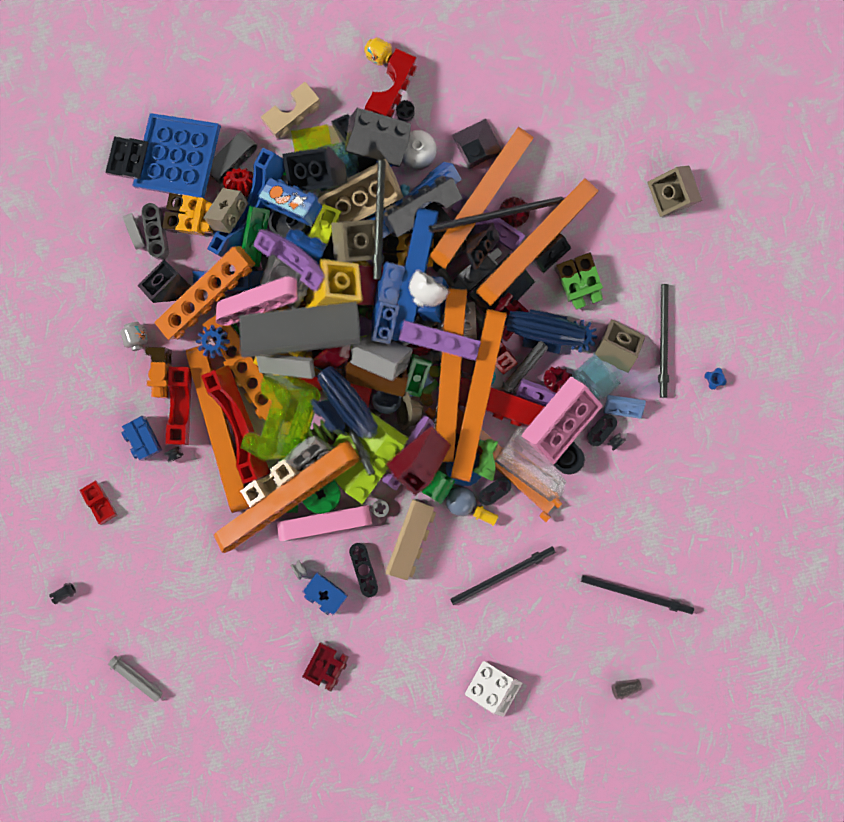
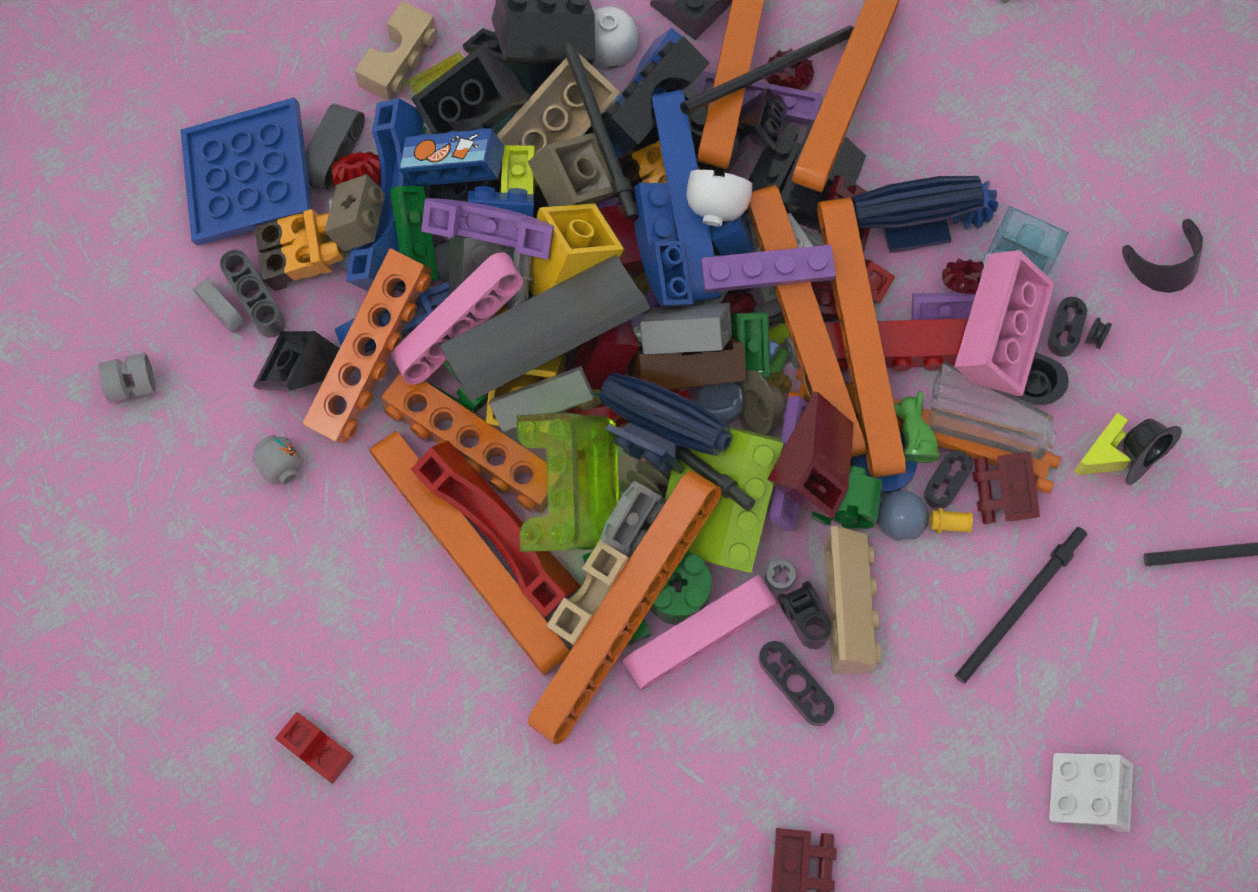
camera: 20 degrees left, 15 degrees down
(66, 255) = (116, 380): none -> light grey wheel
(127, 157) = (168, 204): black slope -> none
(141, 438) = (349, 614): blue brick -> none
(158, 374) = (344, 505): orange hips -> none
(173, 454) = (411, 619): black bush -> none
(180, 403) = (391, 537): red arch -> none
(208, 348) = (409, 422): blue gear -> none
(299, 569) = (691, 723): light grey bush -> none
(335, 594) = (768, 739): blue brick -> none
(384, 534) = (804, 609): none -> black piece
(524, 367) = (909, 276): dark grey axle -> none
(528, 513) = (1017, 487): none -> dark red plate
(552, 253) = (873, 104): black panel -> none
(581, 283) = (931, 125): bright green hips -> none
(583, 511) = (1103, 454): none -> neon yellow slope
(610, 516) = (1147, 445): none -> black piece
(620, 346) = (1037, 192): dark tan slope -> none
(624, 406) = (1085, 277): medium blue plate -> none
(664, 378) = (1121, 216): pearl dark grey bar -> none
(675, 427) = (1167, 277): none -> black piece
(720, 378) = (1202, 183): blue plate -> none

